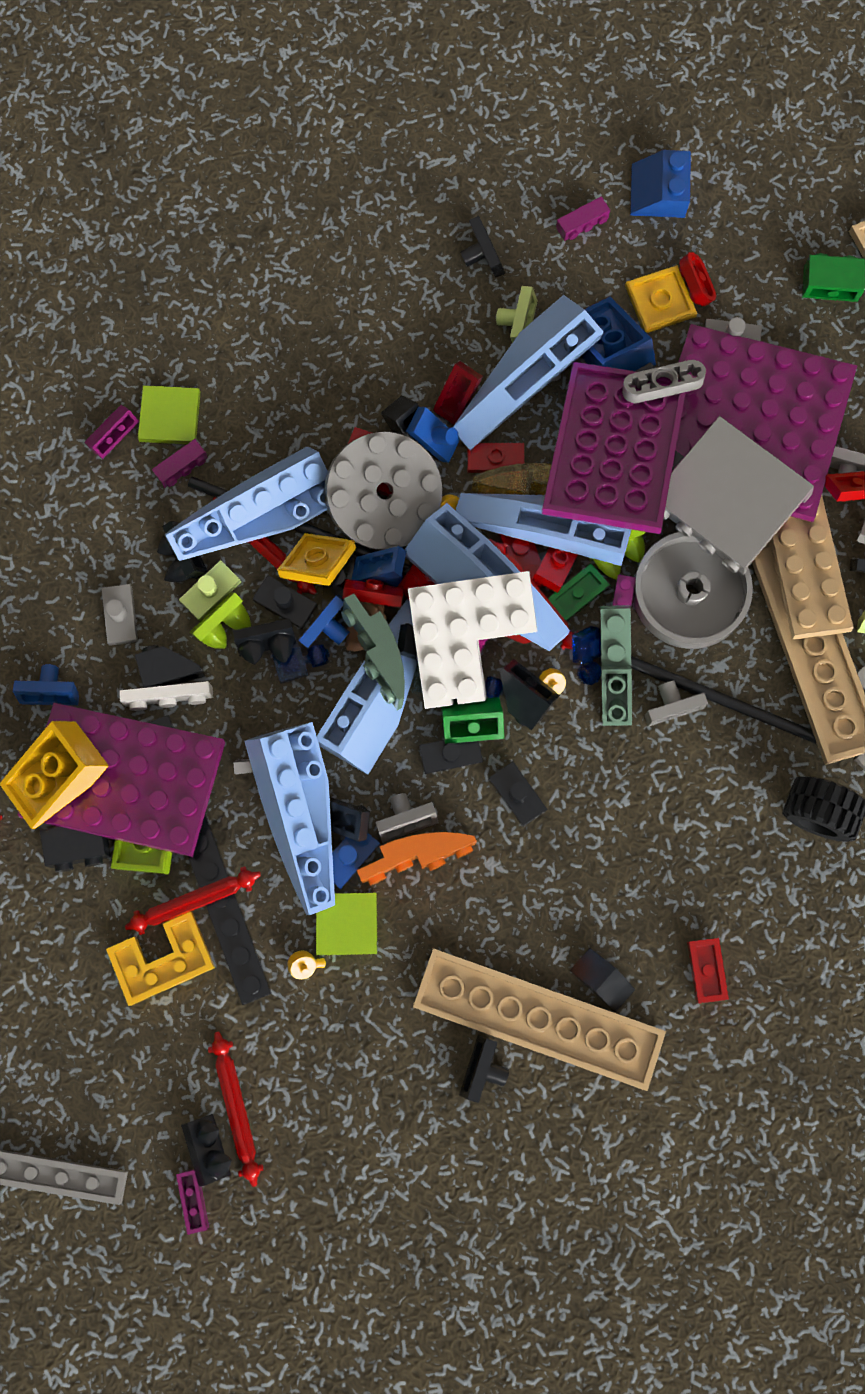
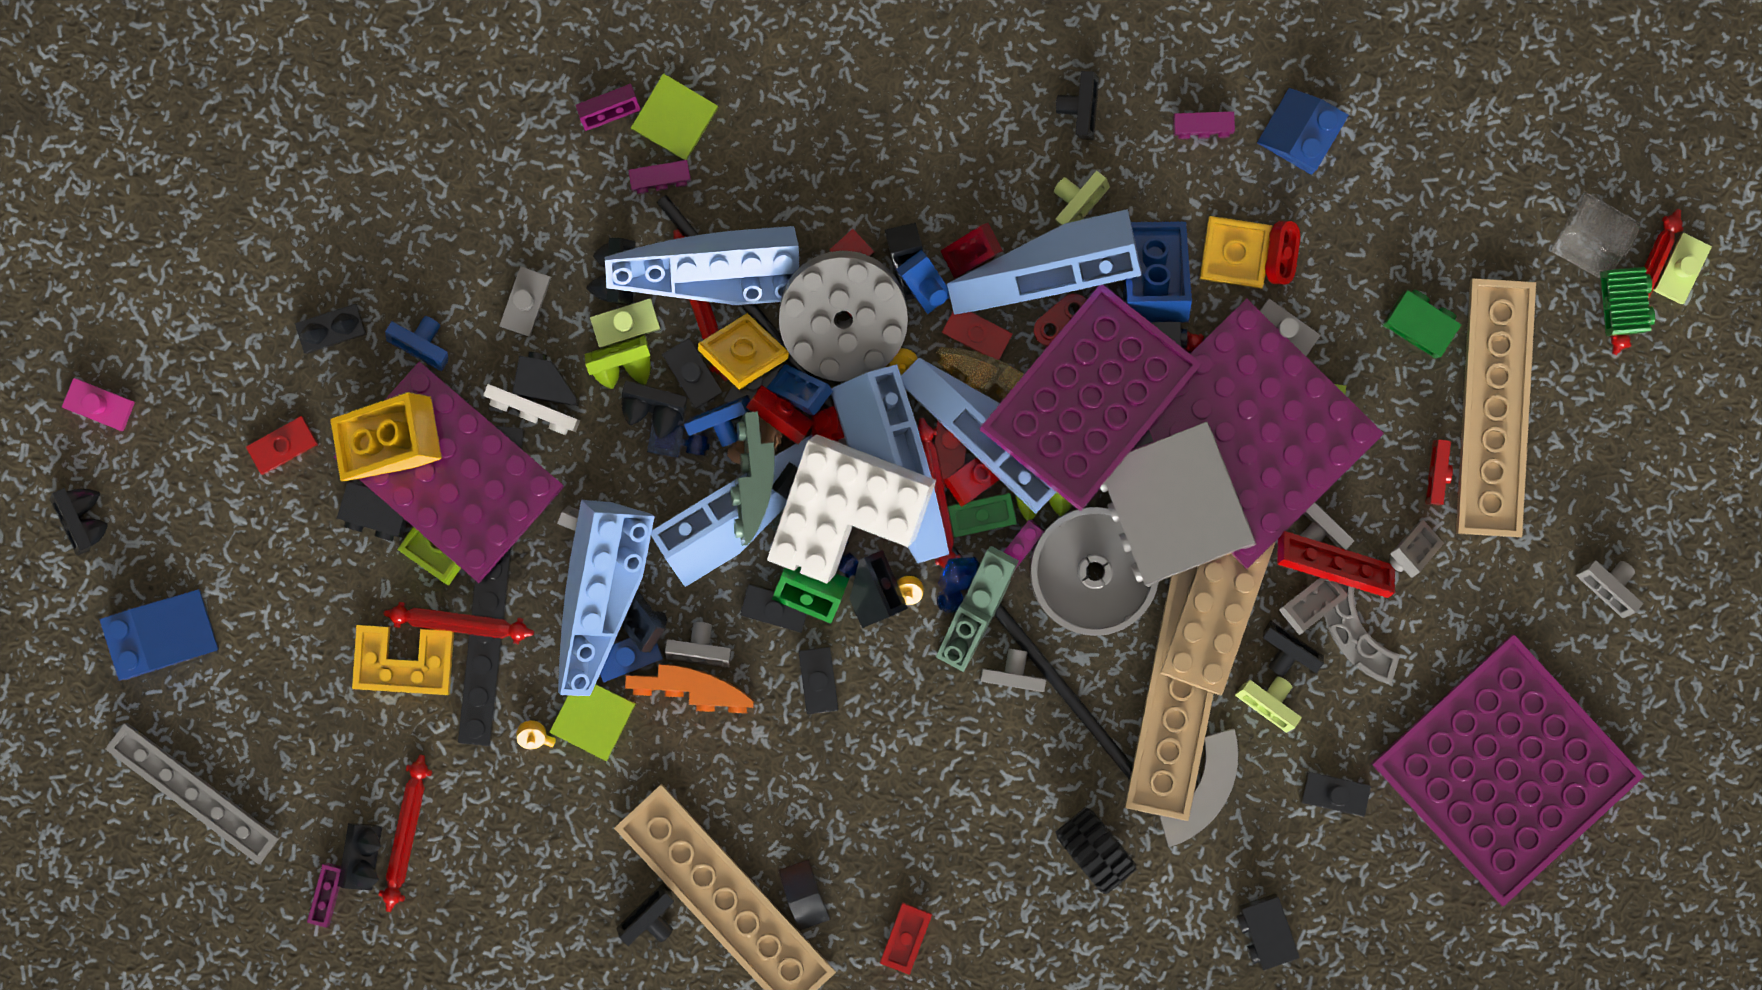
camera: 30 degrees right, 10 degrees up
(552, 413) = (1056, 316): none -> red plate
(673, 372) = (1196, 368): light grey beam -> none

